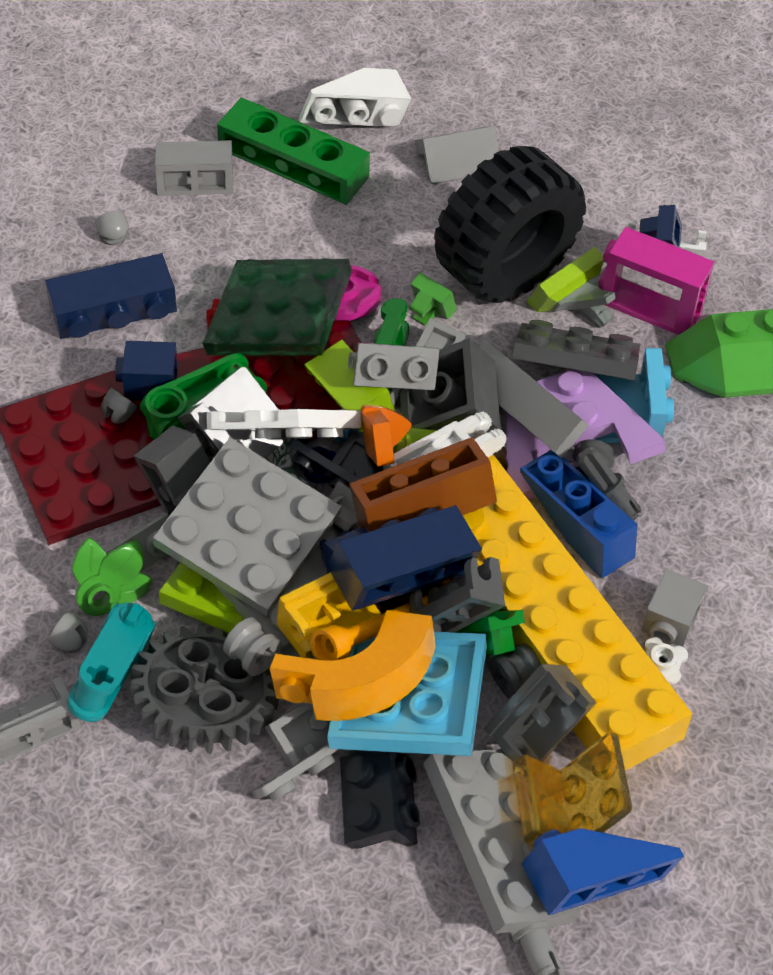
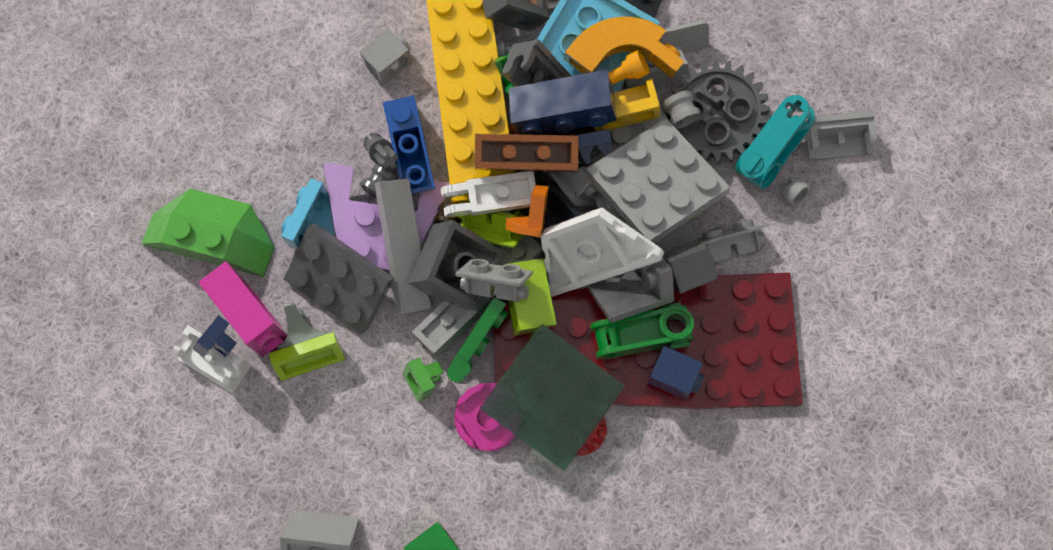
camera: 150 degrees left, 20 degrees up
(111, 296) = (677, 480): dark blue brick -> none
(112, 572) = (764, 212): bright green plate -> none
(118, 406) = (707, 346): dark grey hinge -> none
(509, 224) = (334, 384): black tyre -> none
(674, 656) = (413, 38): white plate -> none

